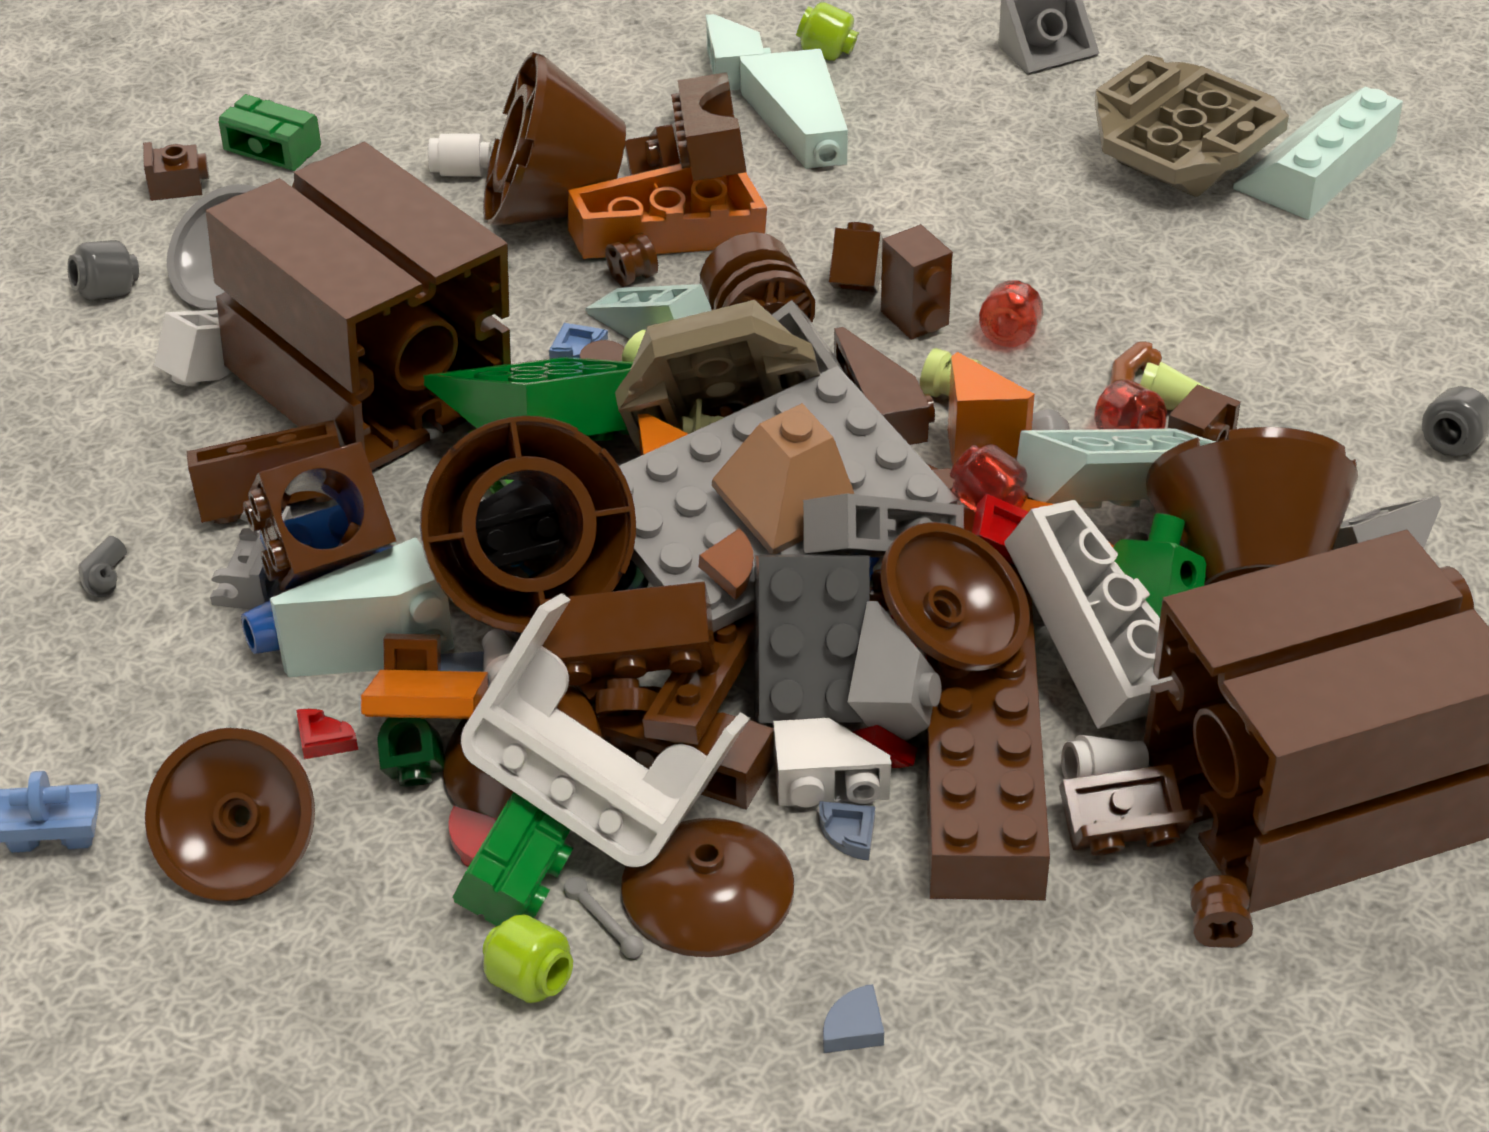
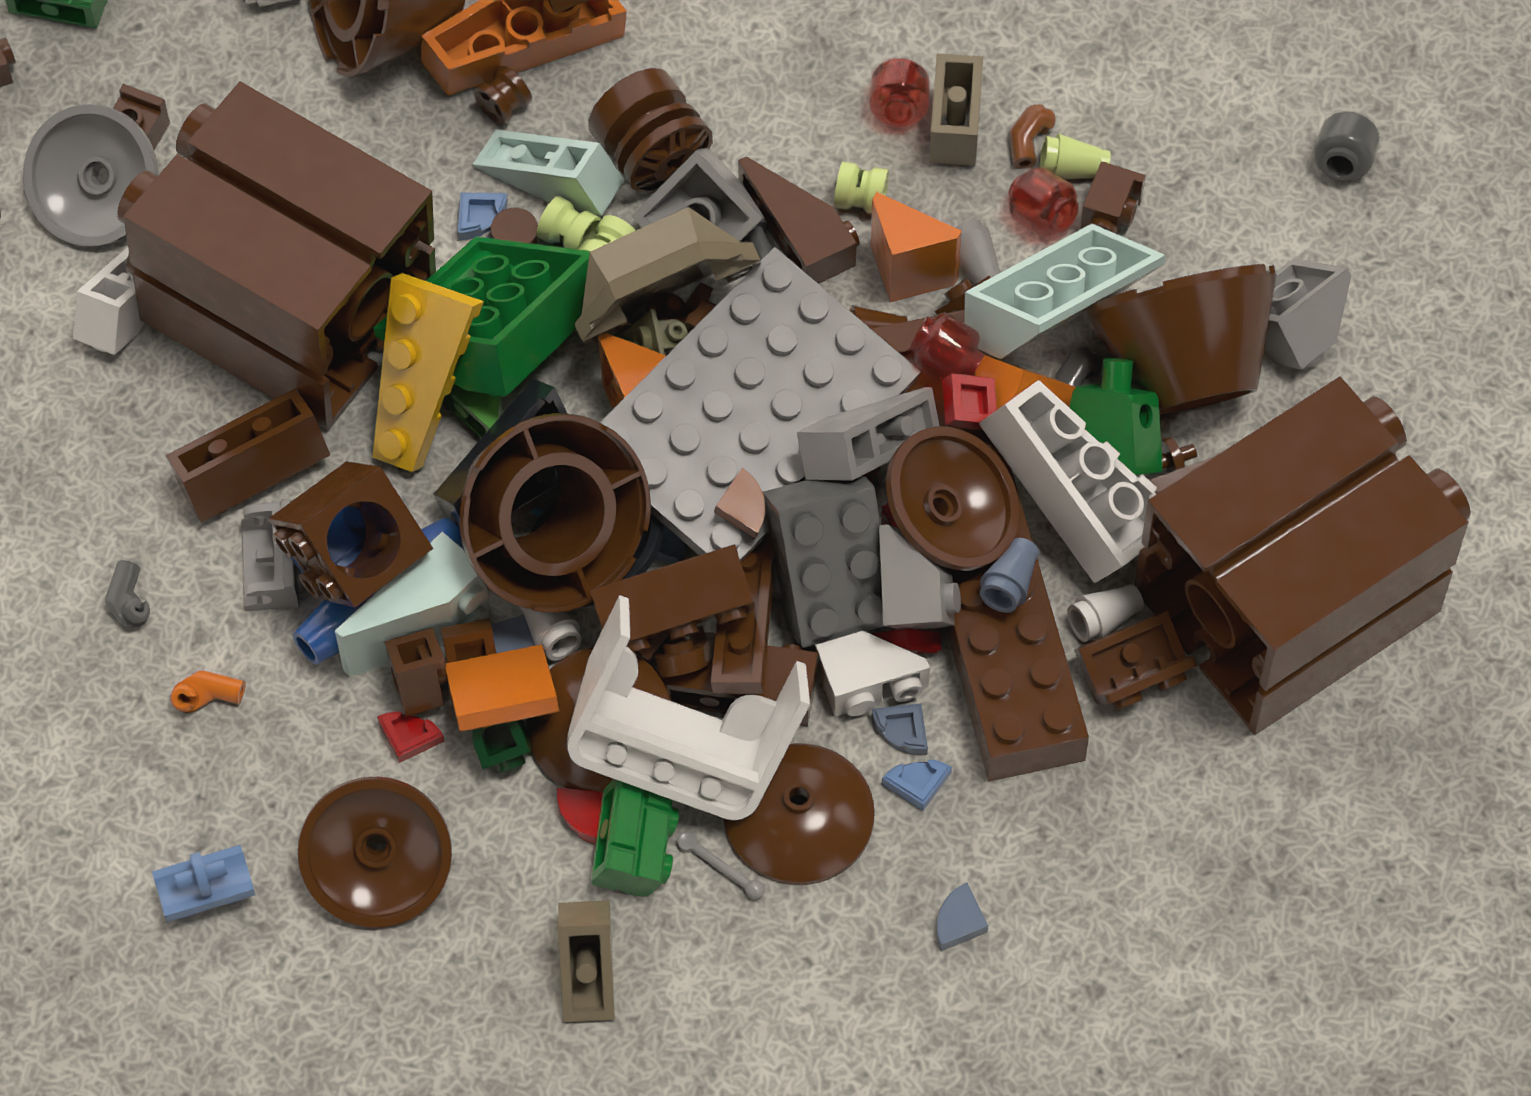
camera: 15 degrees left, 20 degrees up
(137, 655) = (205, 687): none -> orange arm
(347, 668) = (417, 670): none -> reddish brown brick
(415, 971) = (586, 961): none -> dark tan slope
(457, 385) = (421, 348): none -> yellow wing
(527, 958) = (676, 928): lime head -> none
(776, 470) = (767, 403): medium nougat slope -> none
(849, 881) = (917, 781): none -> medium blue tile
(856, 258) = (731, 50): reddish brown slope -> none
(916, 281) = (802, 81): reddish brown brick -> none
(996, 686) = (1009, 578): none -> sand blue cone
(1062, 329) = (956, 109): none -> dark tan brick
(1221, 911) = (1235, 746): reddish brown wheel -> none

